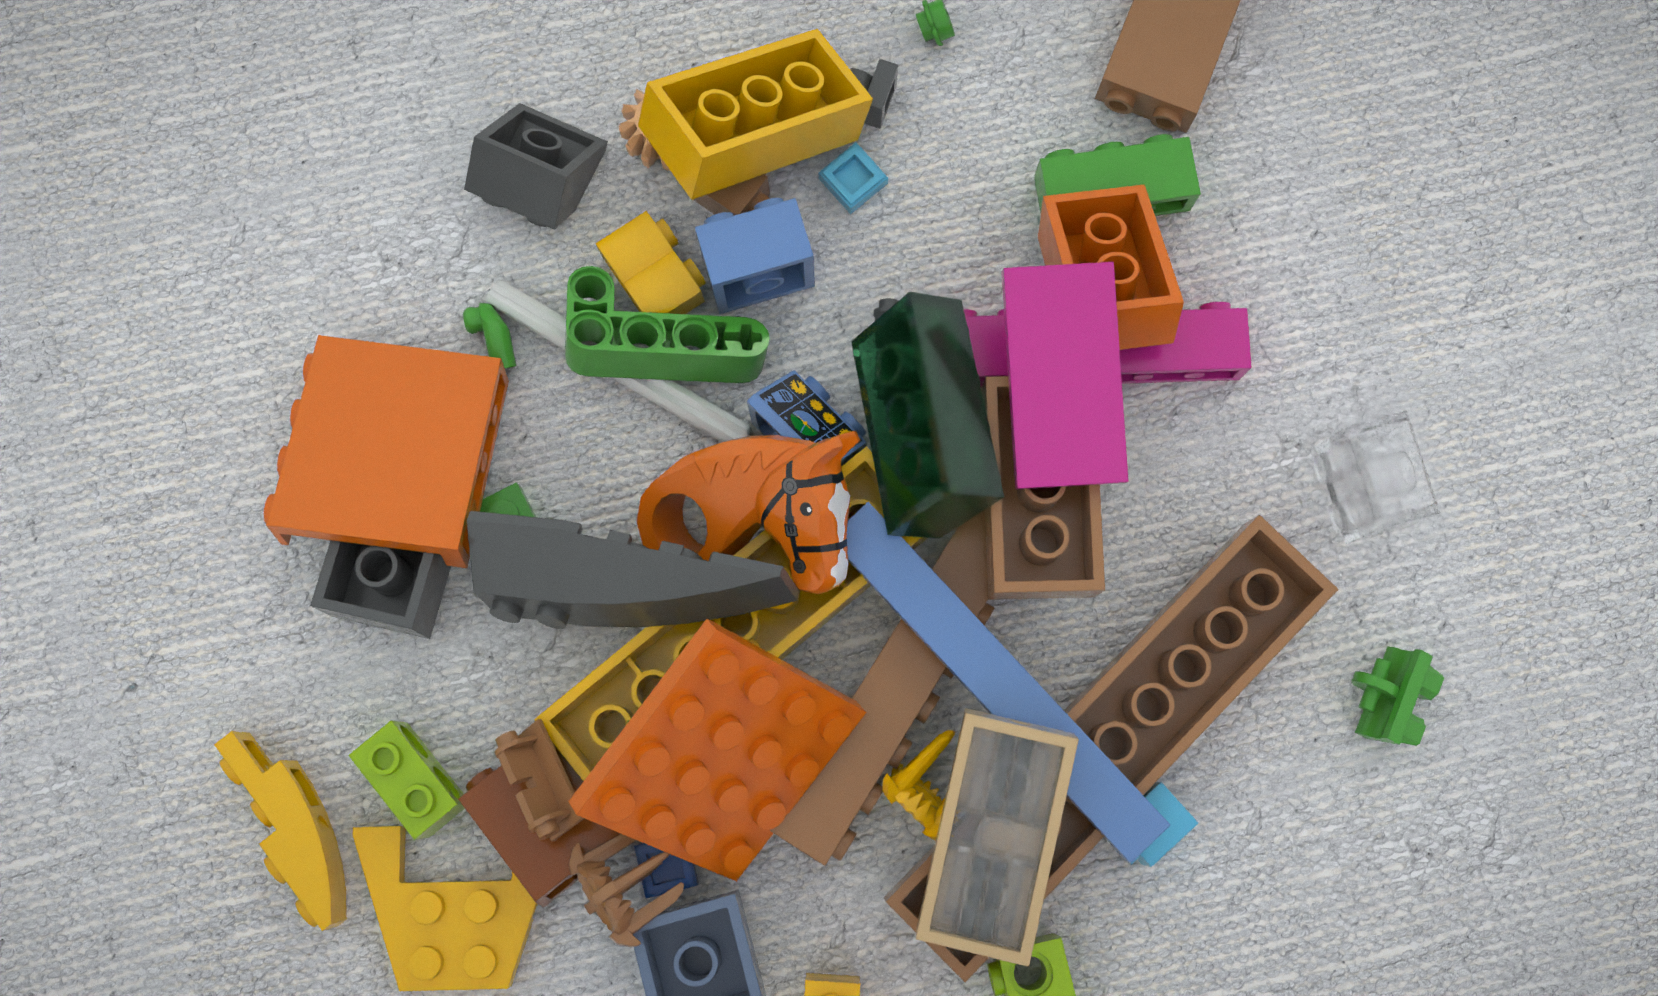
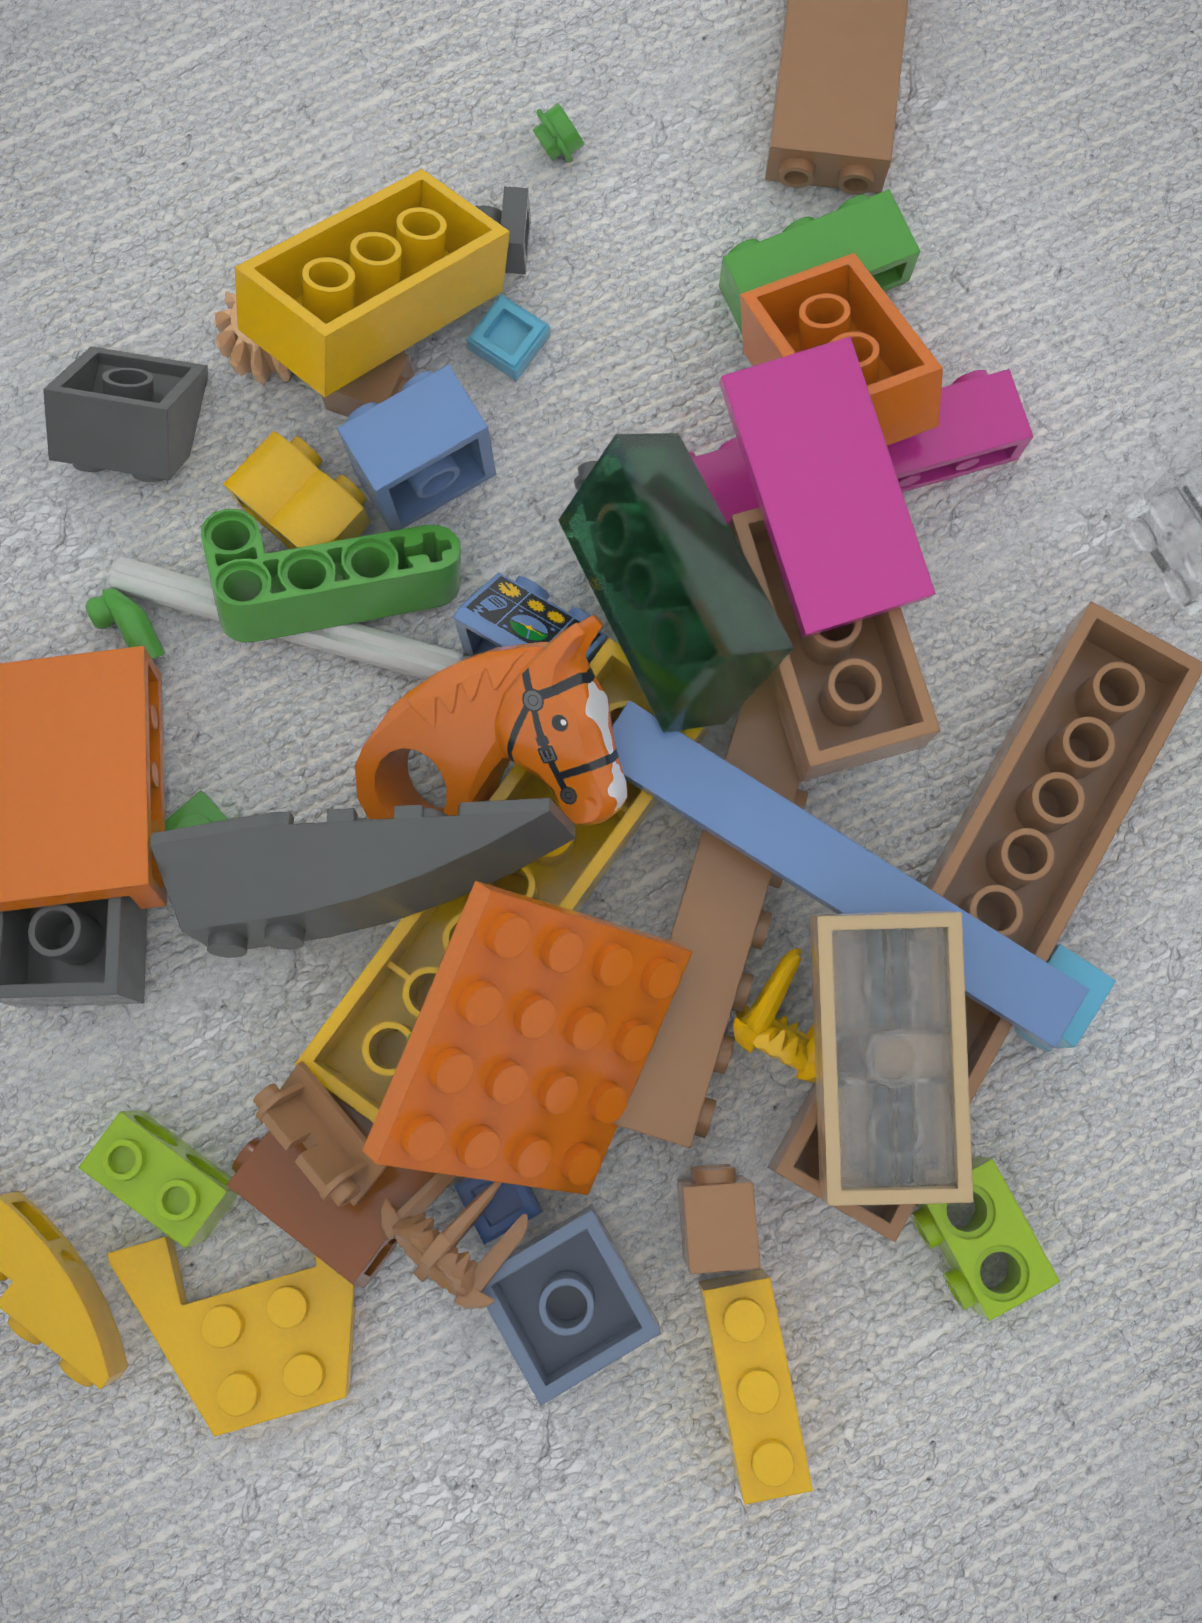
camera: 15 degrees left, 0 degrees up
(831, 928) = (718, 1220): none -> medium nougat brick

